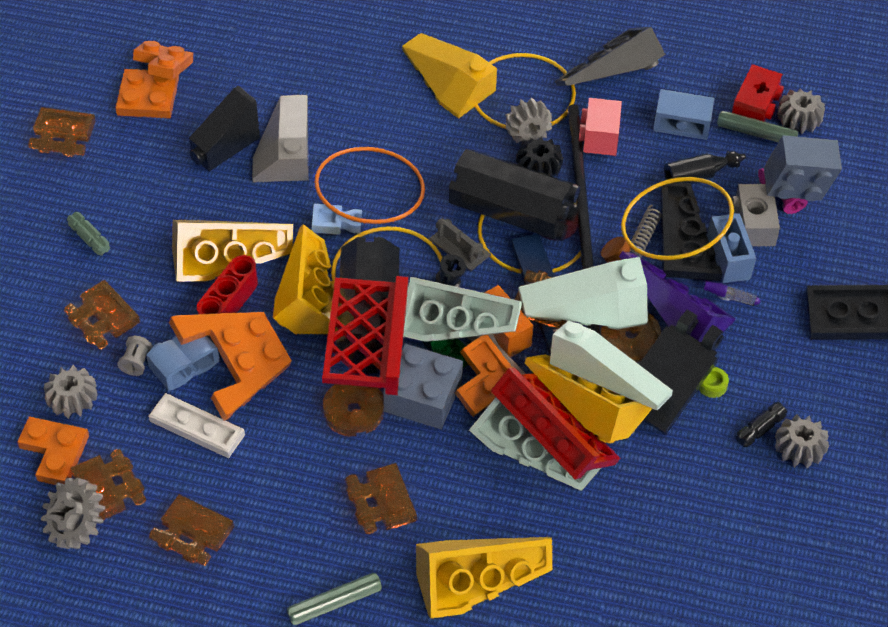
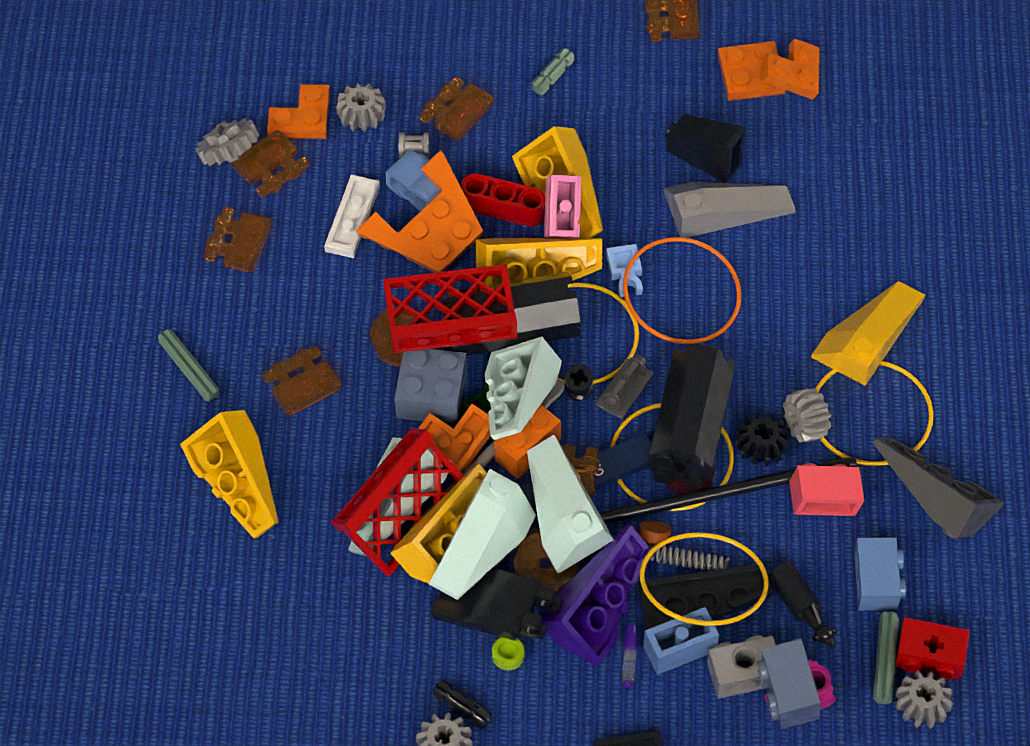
camera: 80 degrees right, 5 degrees up
(265, 240) = (562, 206): none -> bright pink brick

